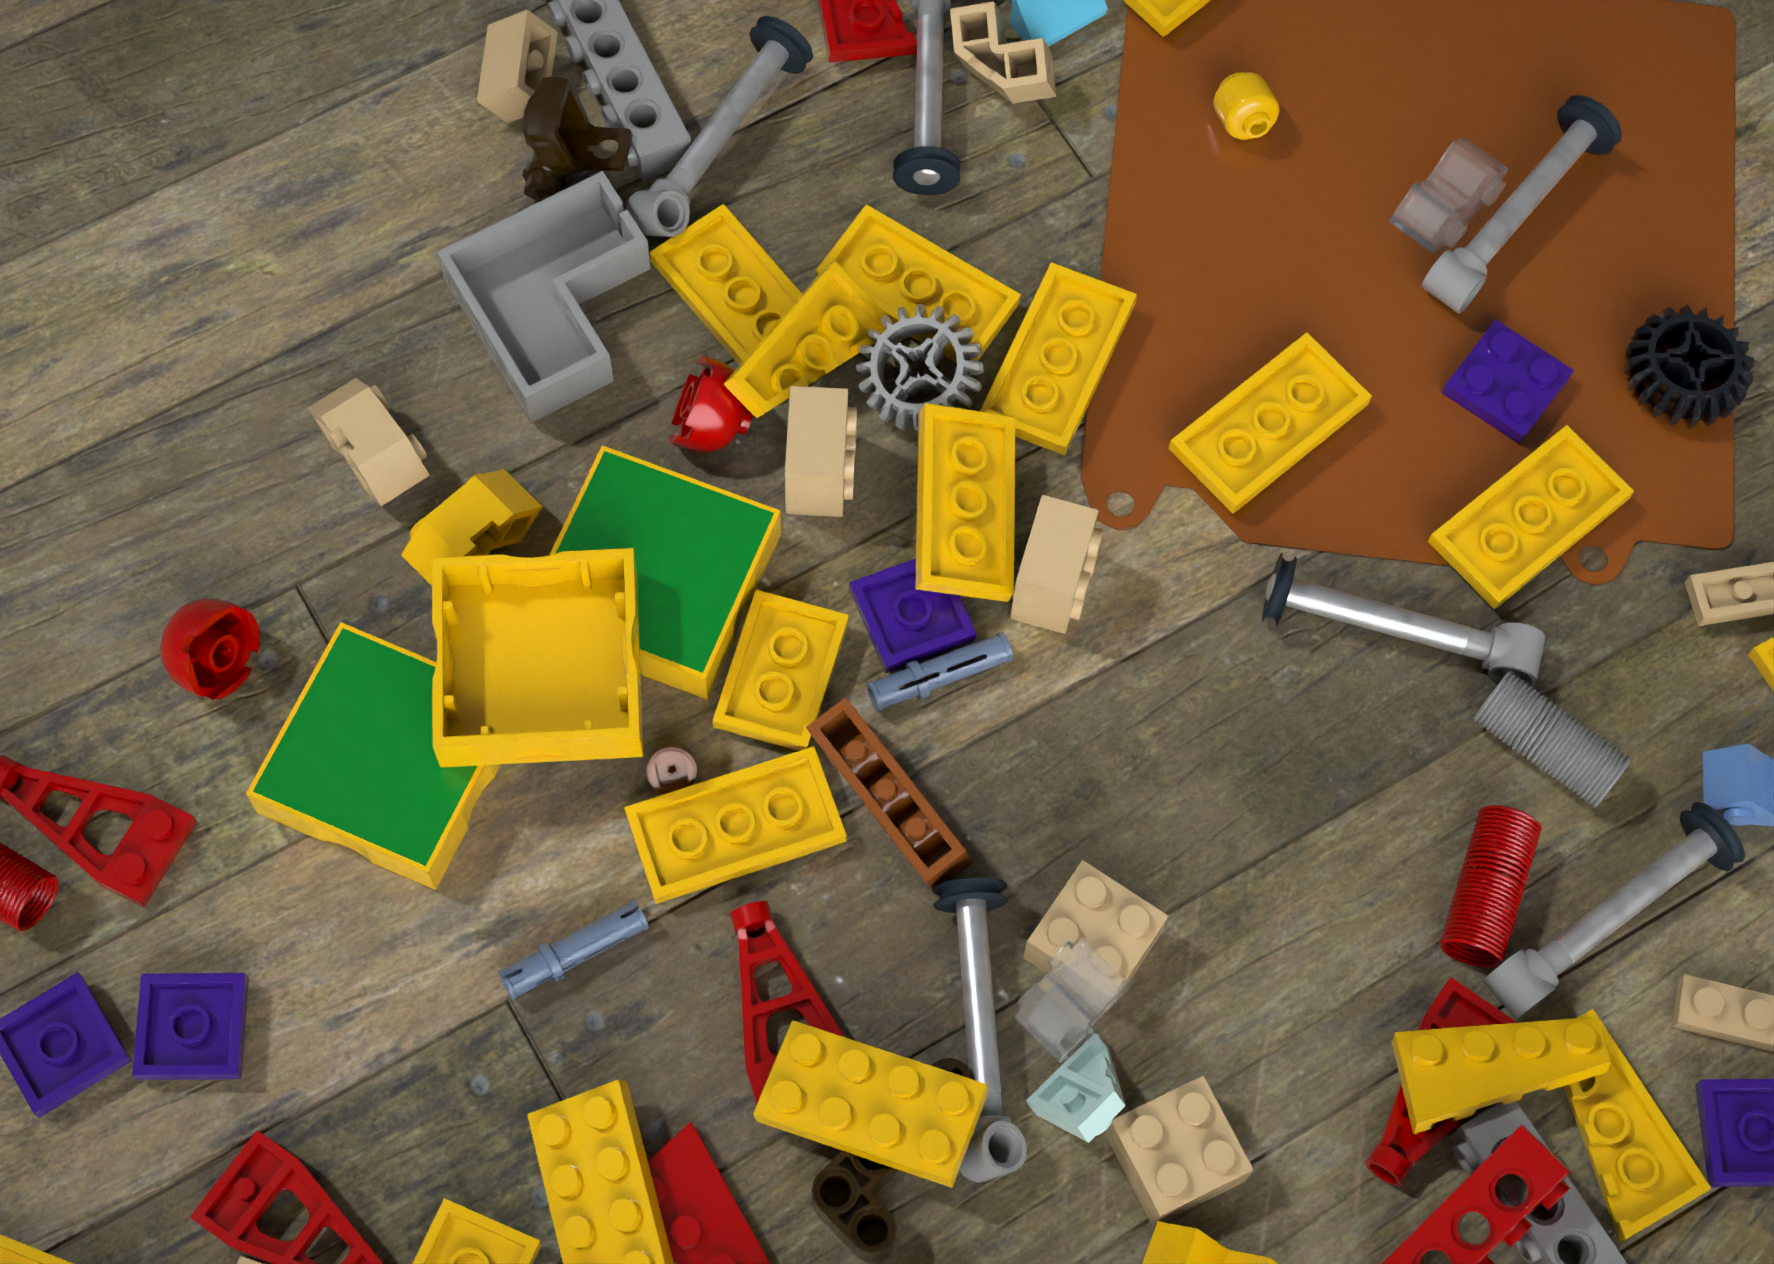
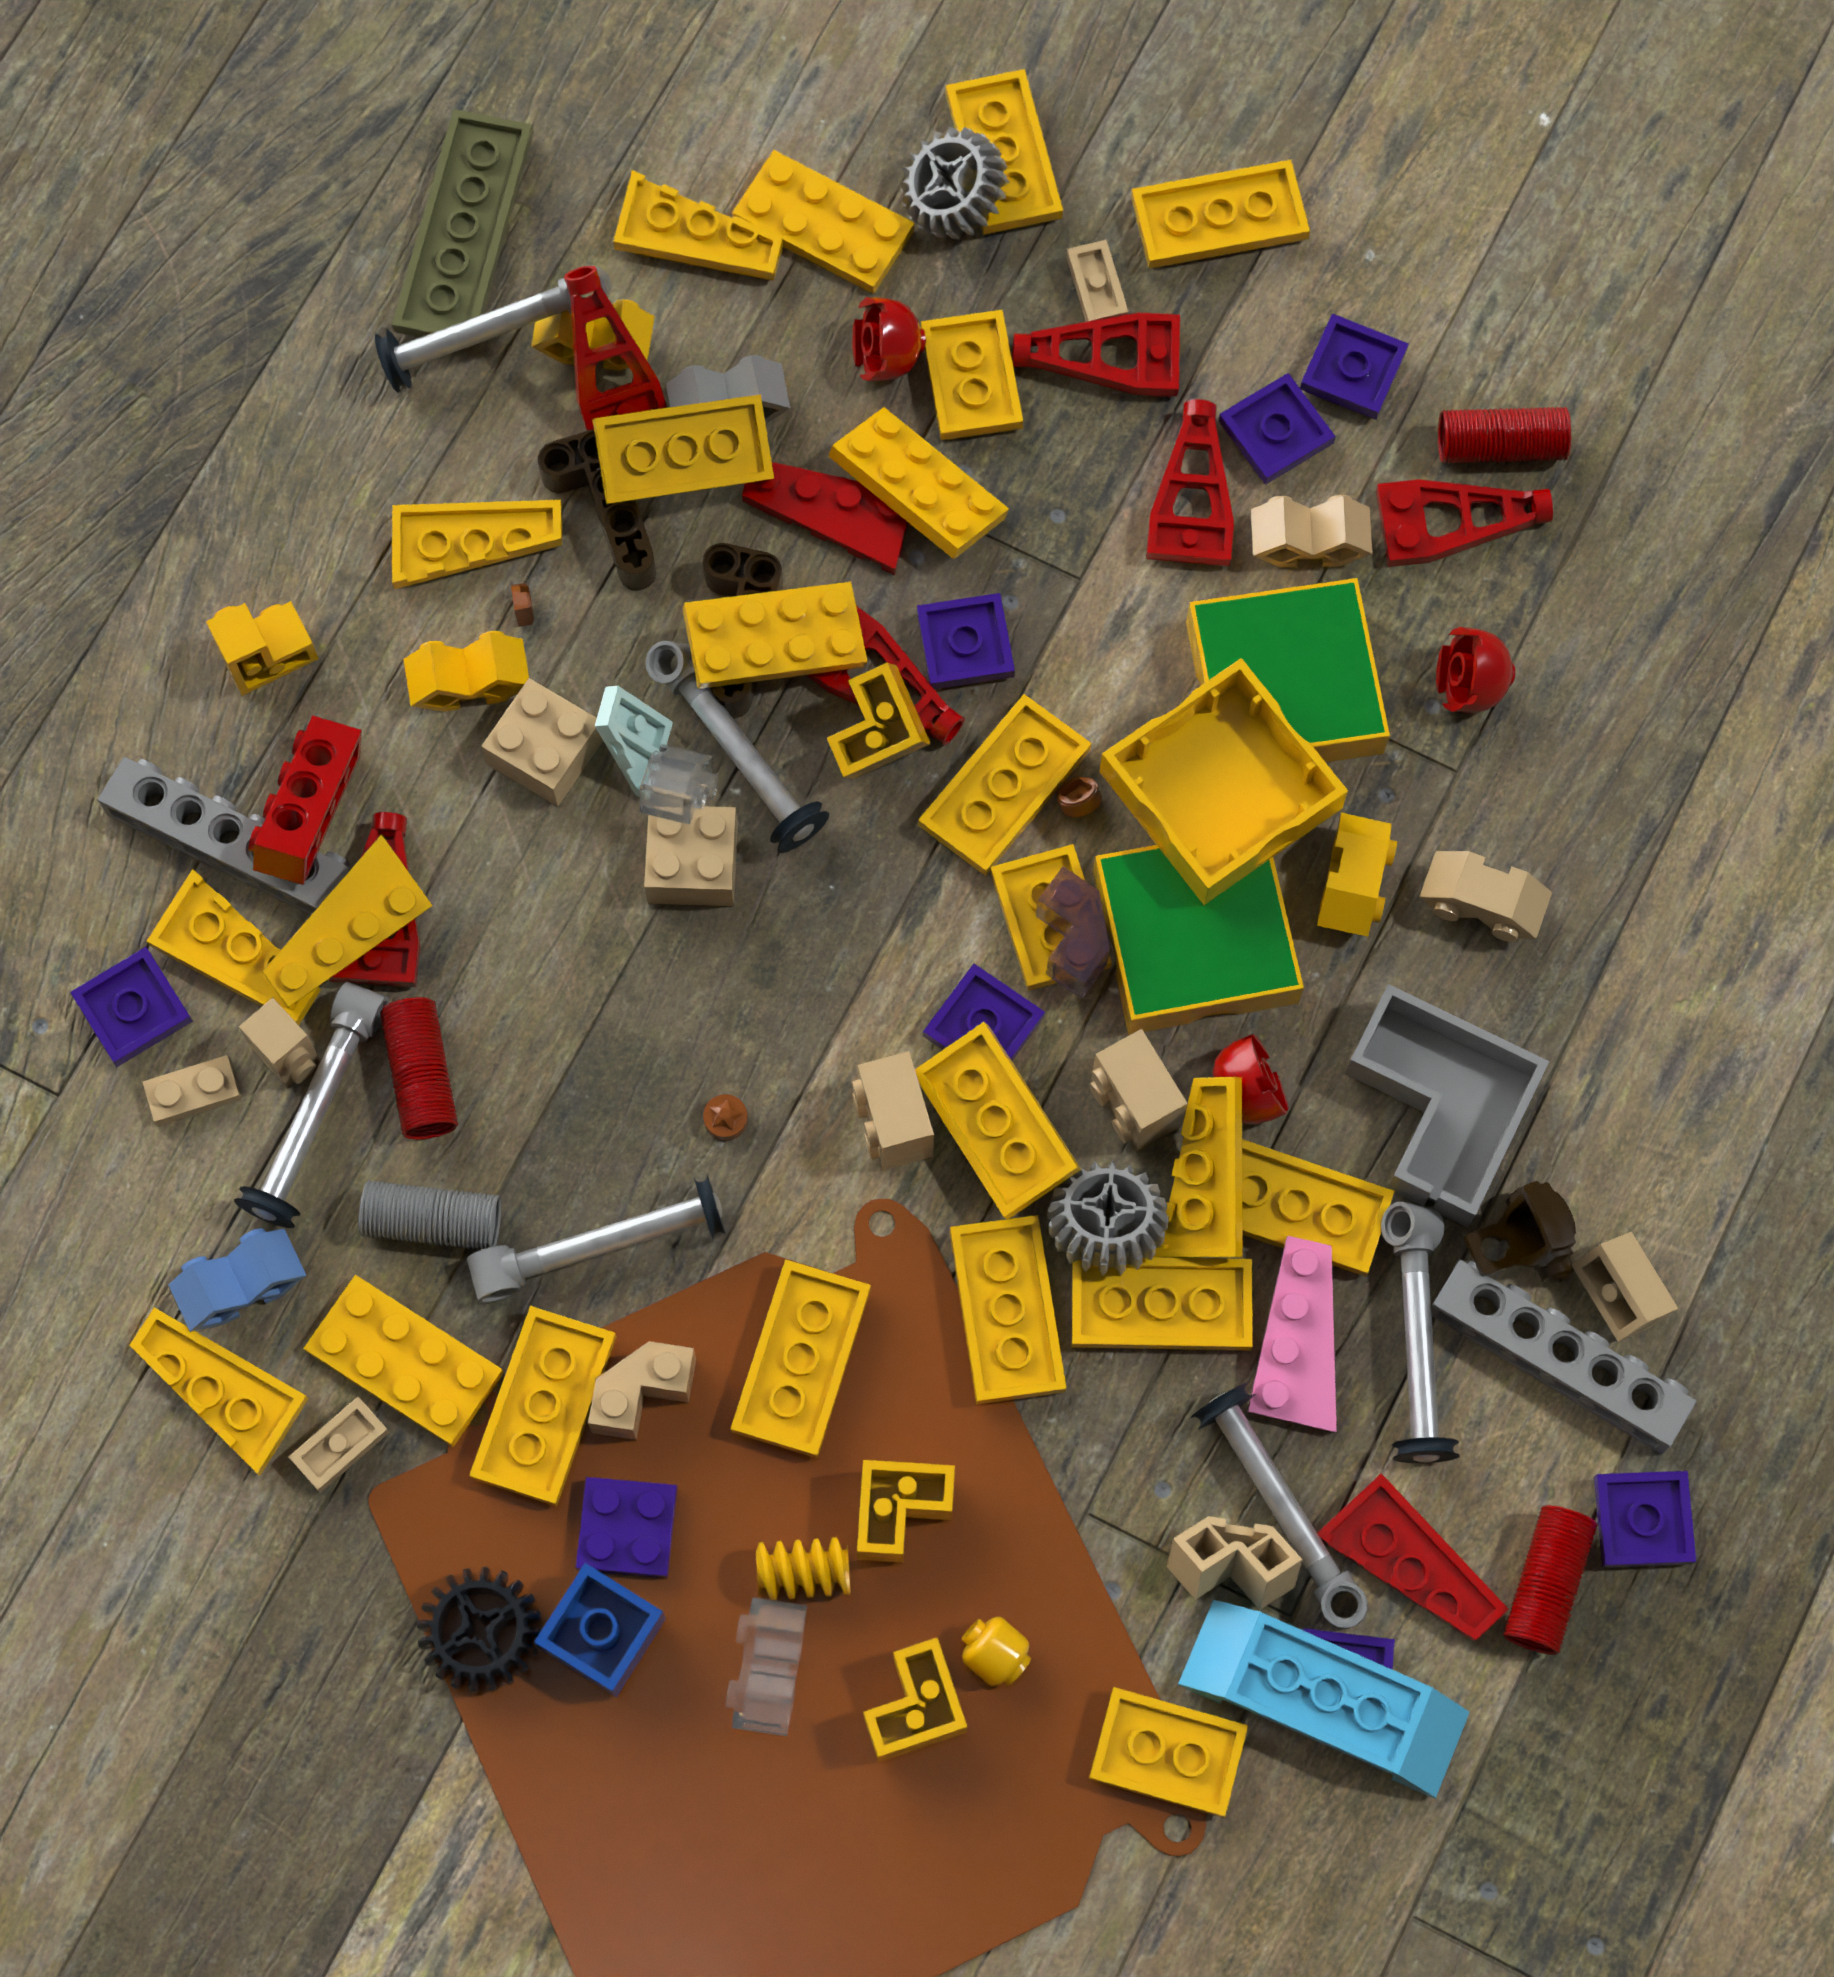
camera: 150 degrees right, 5 degrees up
(238, 881) = (1330, 531): none -> tan brick
(369, 963) = (1191, 537): none -> red plate
(555, 959) = (1064, 617): sand blue pin -> none
(672, 996) = (965, 641): none -> dark purple plate
(778, 599) = (1077, 913): none -> brick
(823, 187) = (1297, 1349): none -> bright pink wing
(826, 932) = (889, 726): none -> yellow brick
(886, 690) = (942, 976): sand blue pin -> none
(889, 794) = (904, 862): dark orange brick -> none
(1210, 675) = (725, 1117): none -> dark orange tile
(1256, 256) = (895, 1492): none -> yellow brick
(1343, 88) = (928, 1711): none -> yellow brick
(1374, 253) = (802, 1569): none -> yellow piece
(1416, 480) = (650, 1371): none -> tan brick
(1461, 273) = (718, 1598): piece -> none
(1583, 298) = (600, 1630): none -> blue brick
(1626, 980) = (280, 1044): none -> tan brick
(1640, 636) = (404, 1360): none -> yellow plate

